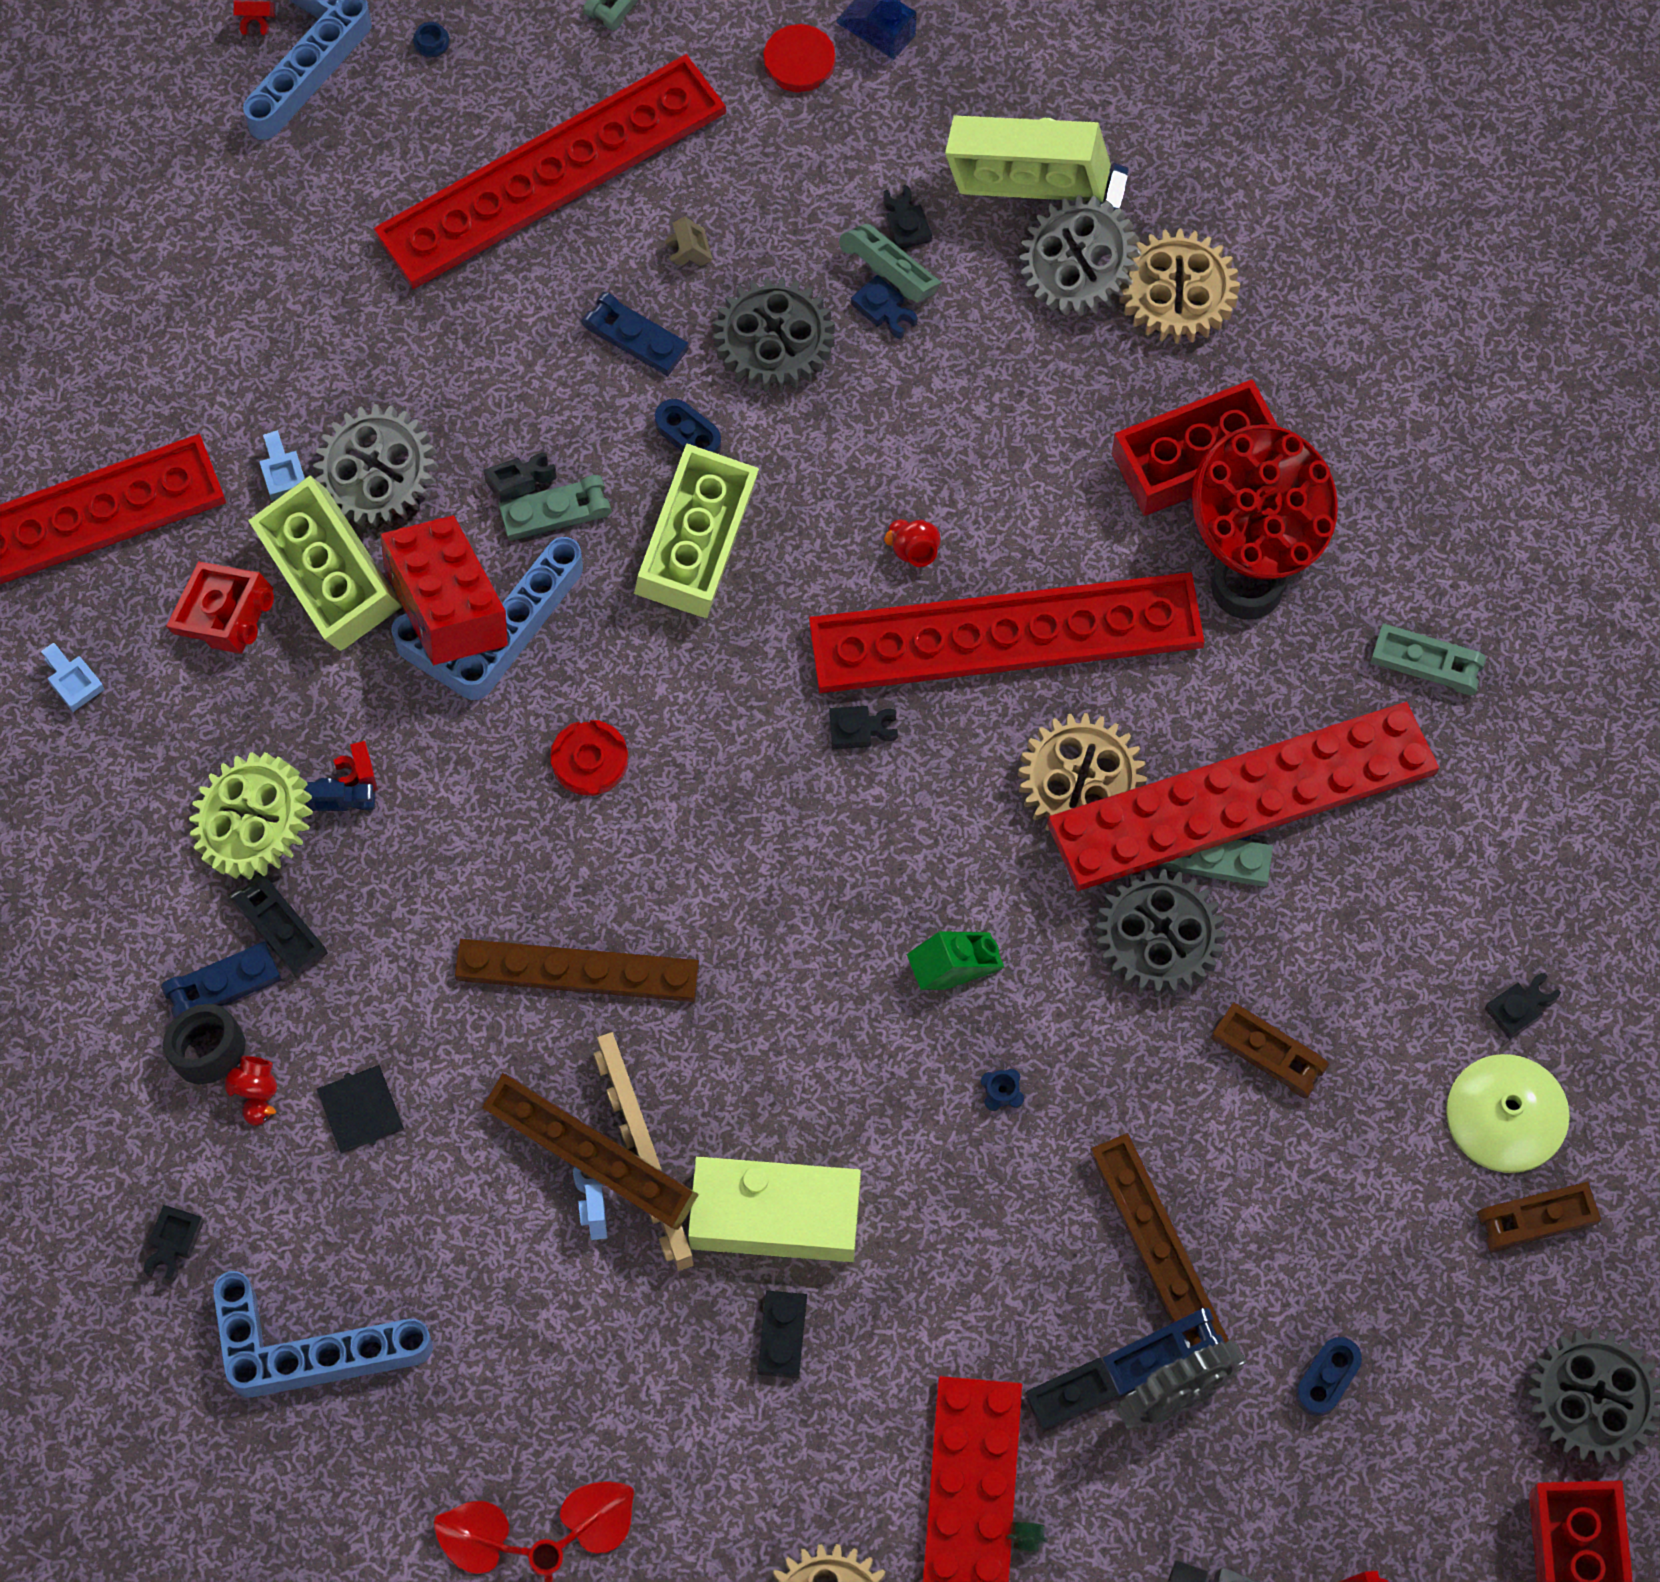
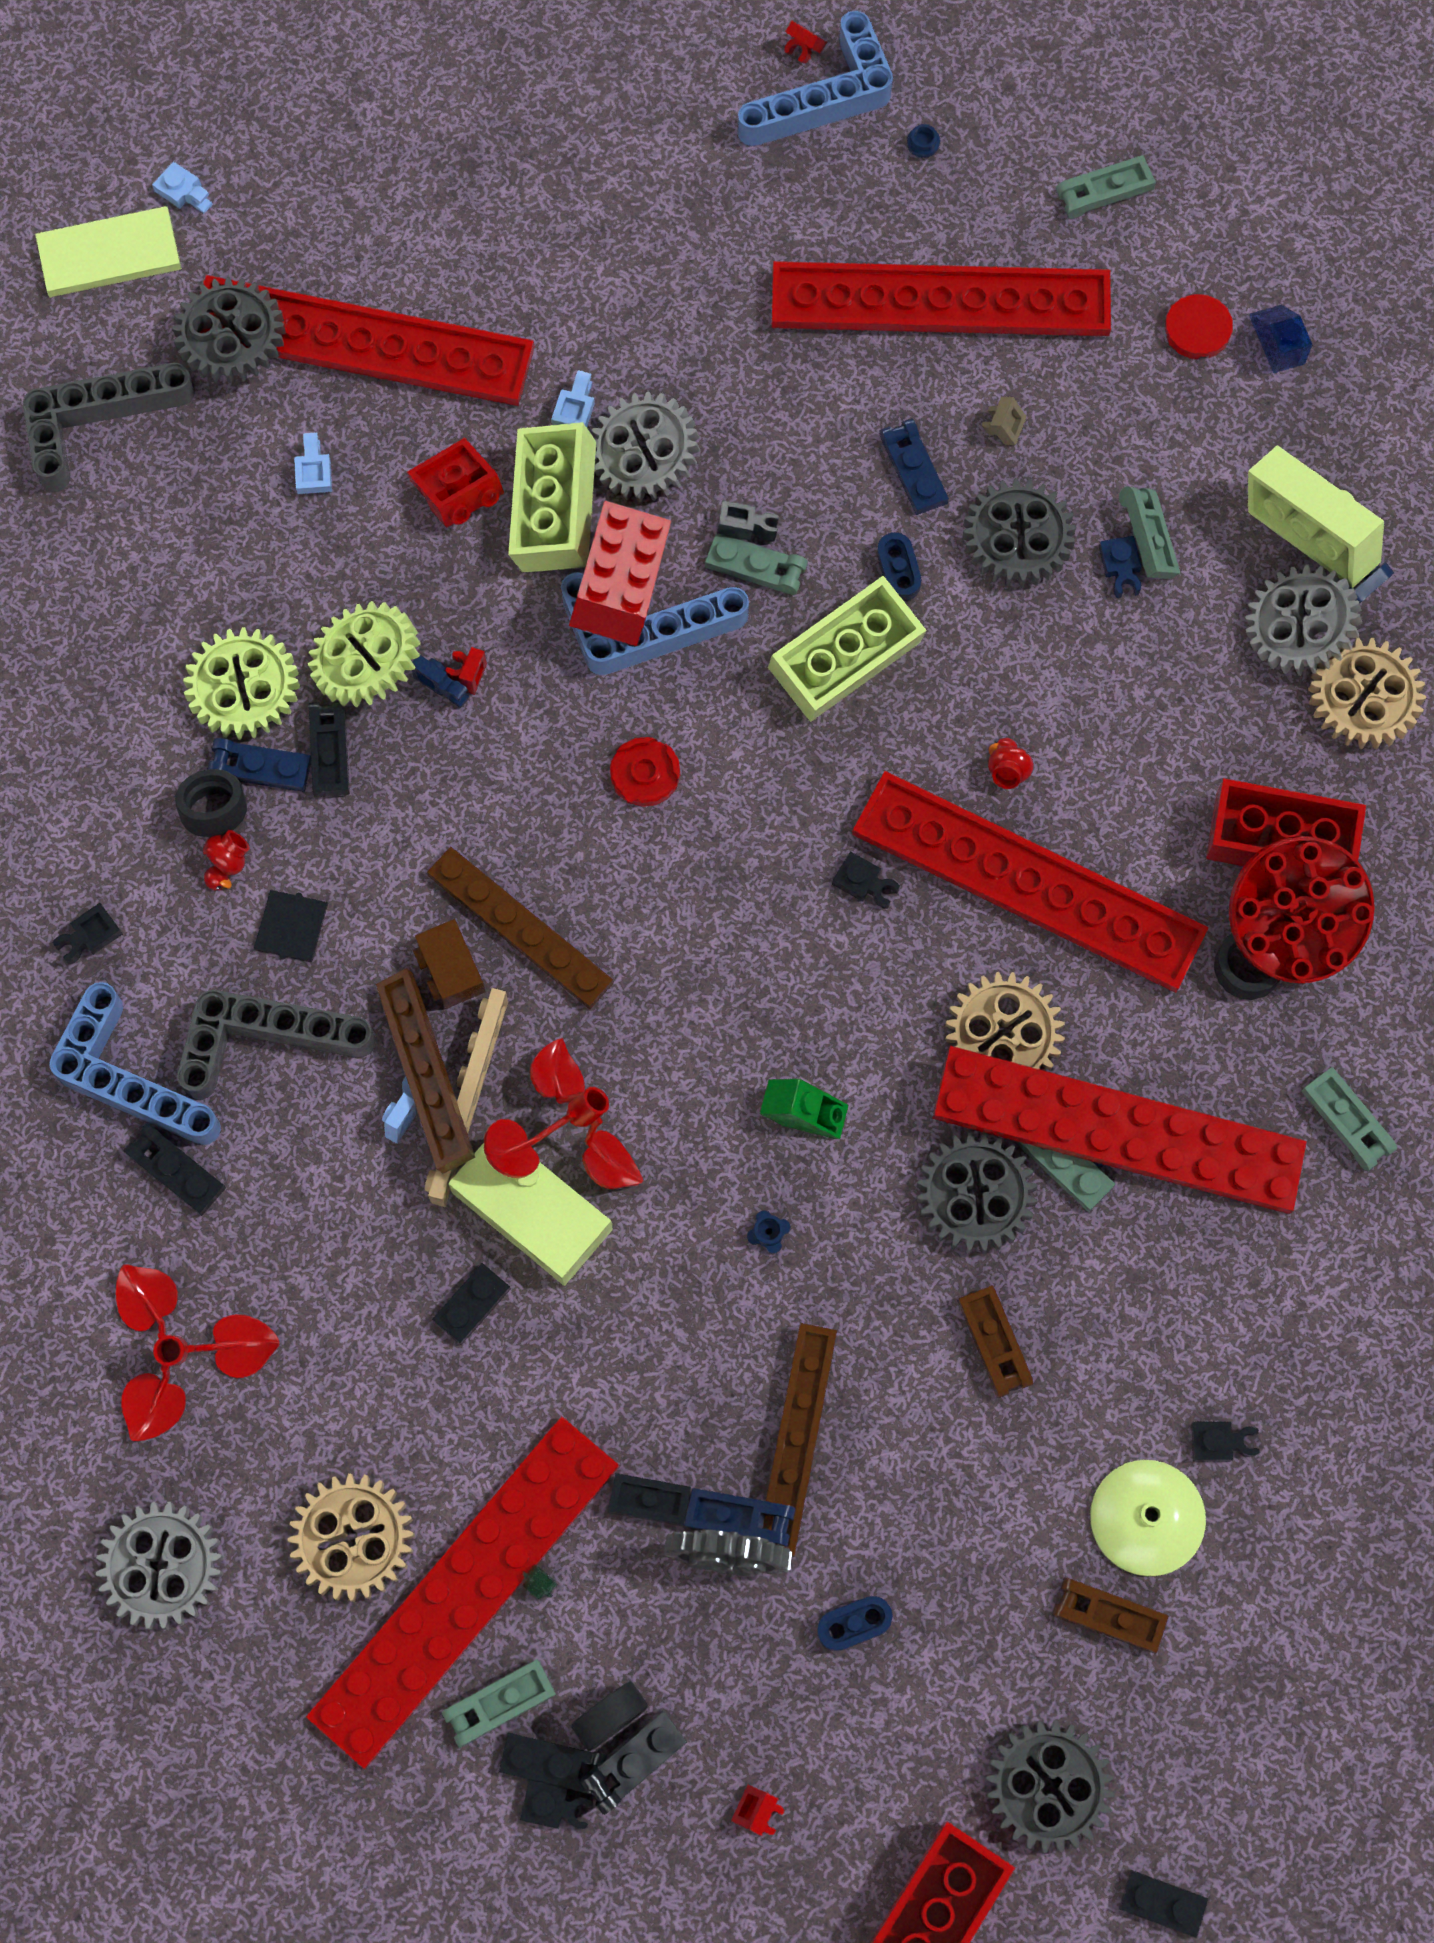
camera: 35 degrees right, 5 degrees up
(123, 942) = (273, 675): none -> yellowish green gear
(410, 1216) = (263, 1028): none -> dark grey beam
(415, 1401) = (175, 1170): none -> black plate
(538, 1044) = (449, 964): none -> reddish brown brick
(716, 1079) = (559, 1076): none -> red plant
(906, 223) = (1188, 509): black plate -> none

